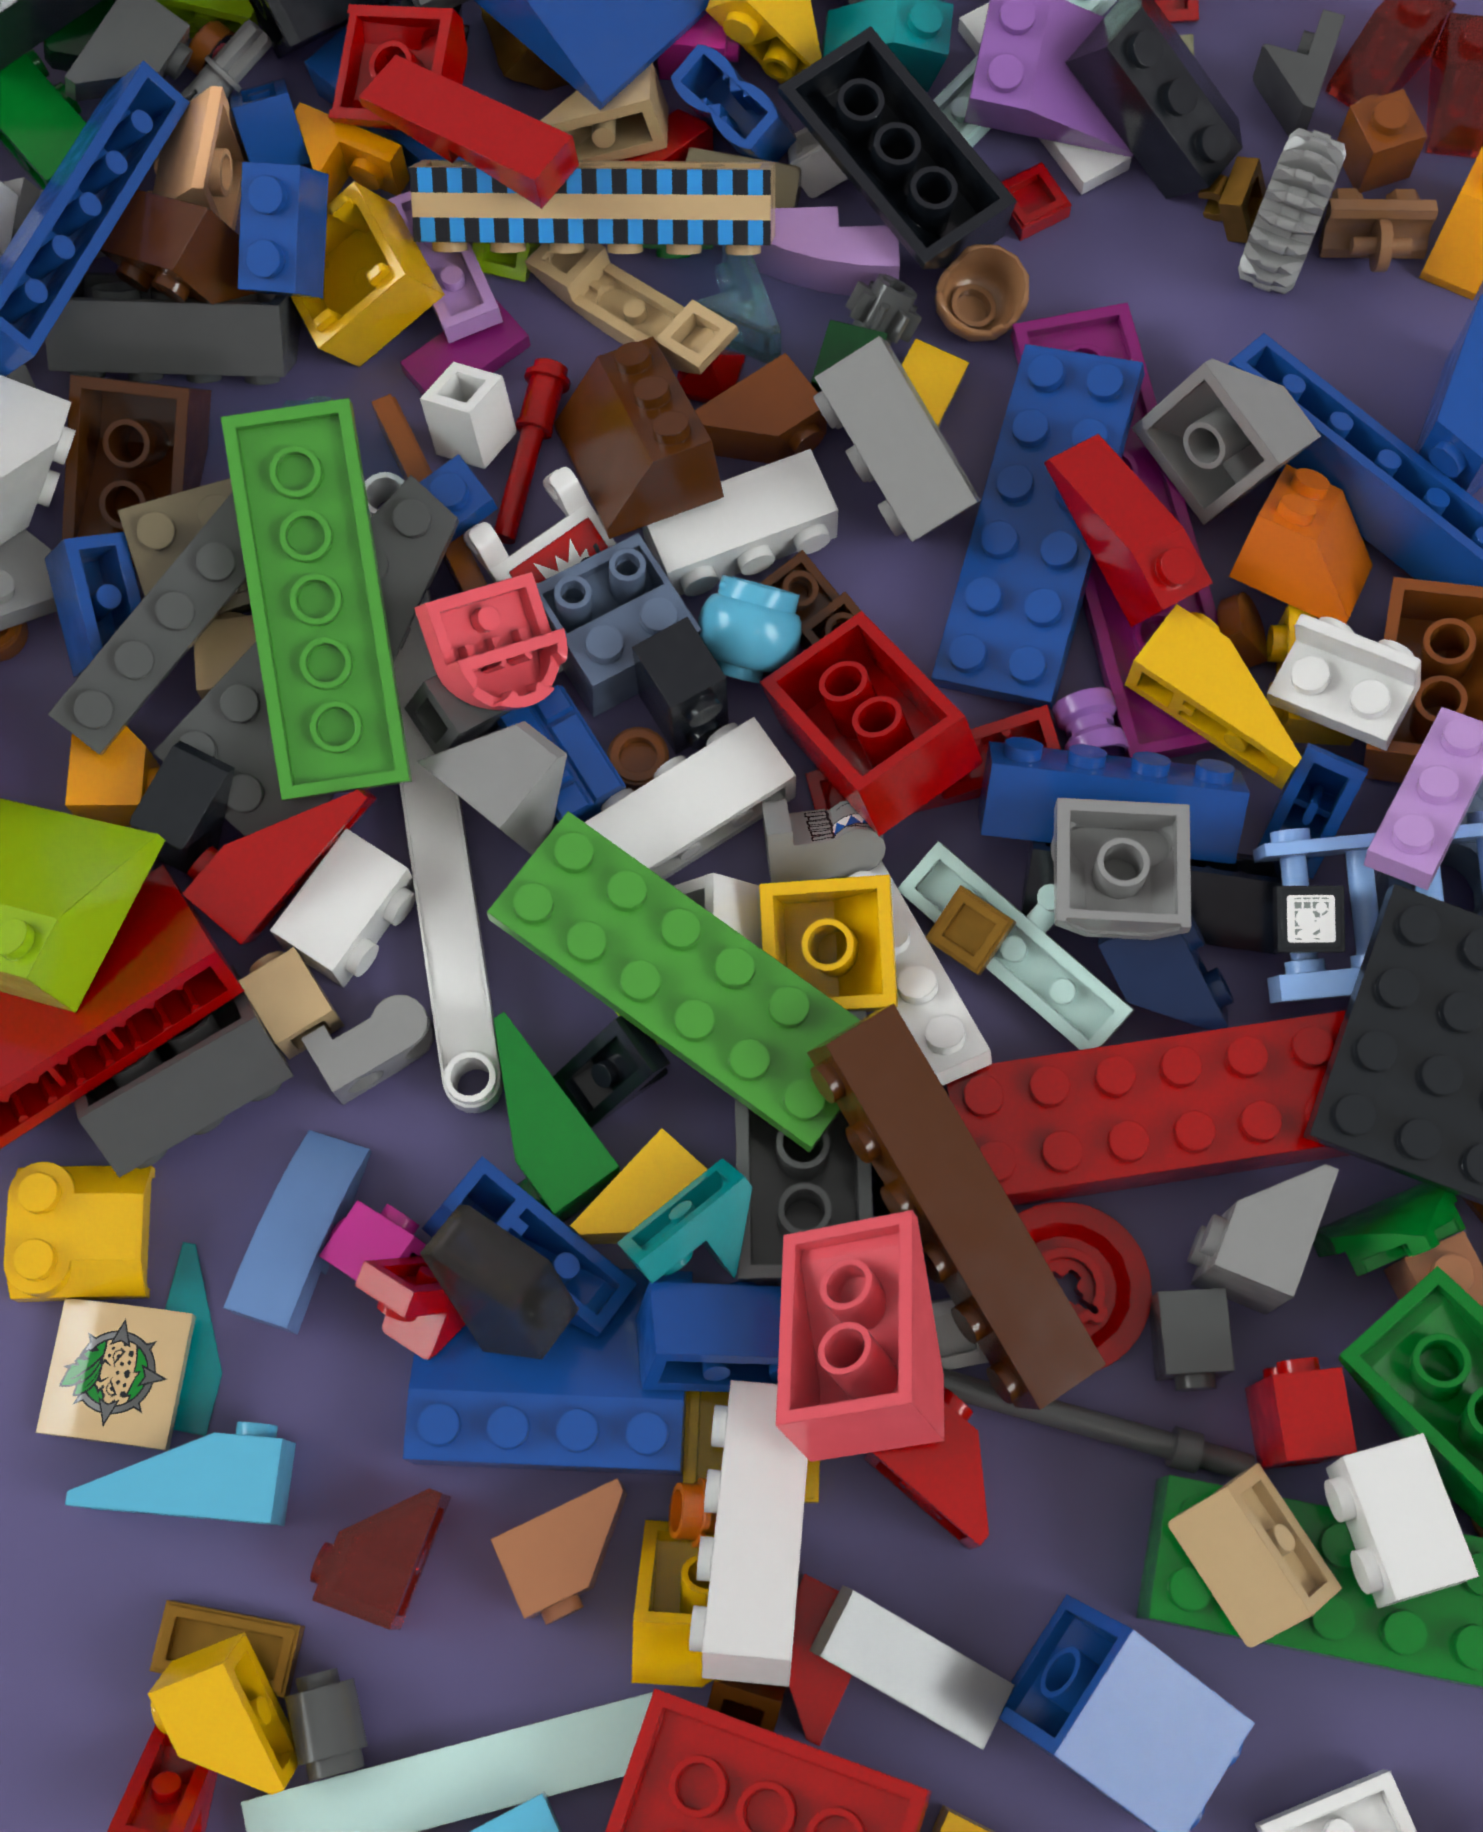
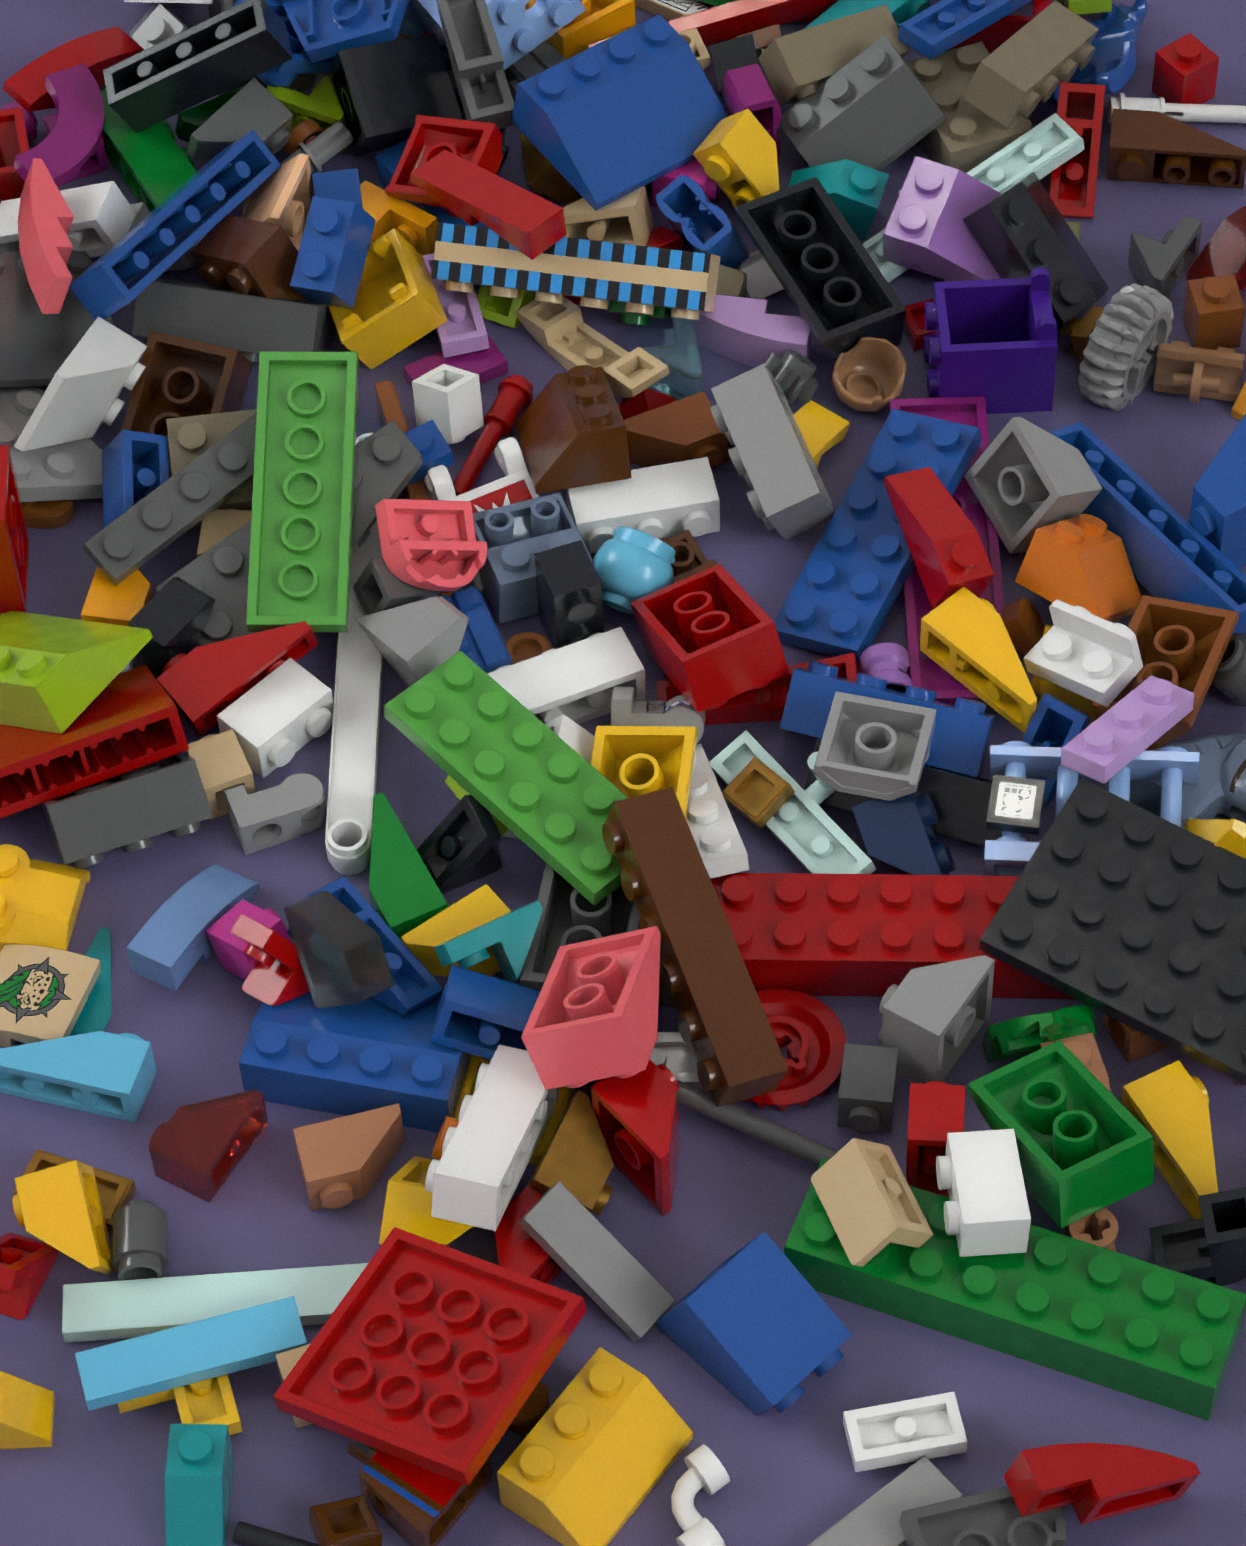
camera: 10 degrees right, 20 degrees down
(853, 1526) = (577, 1157): none -> pearl gold slope
(1131, 228) = (993, 342): none -> dark purple container

